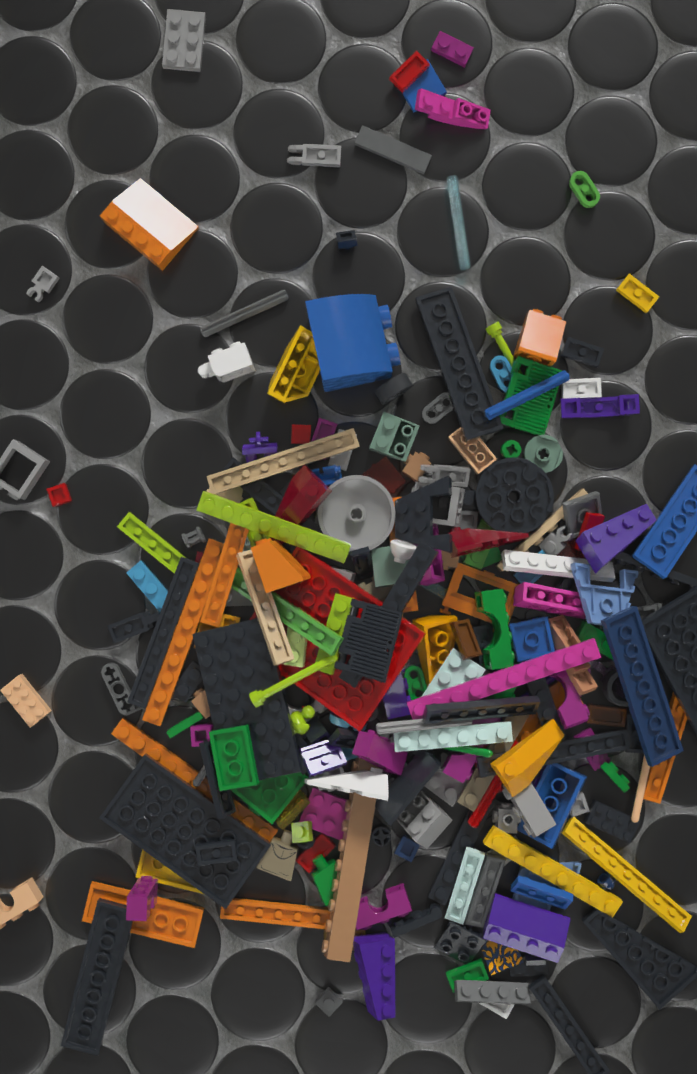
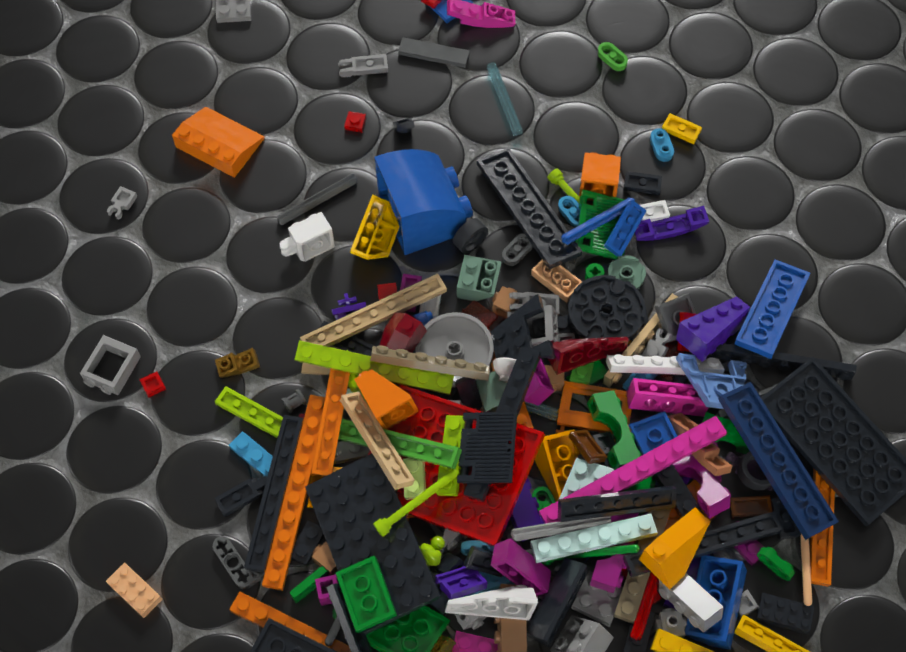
camera: 10 degrees left, 25 degrees down
(143, 486) = (237, 364): none -> pearl gold slope
(296, 224) = (355, 121): none -> red plate
(328, 533) = (429, 363): none -> dark tan plate
(552, 407) = (625, 228): none -> blue plate
(612, 307) = (661, 143): none -> dark azure plate

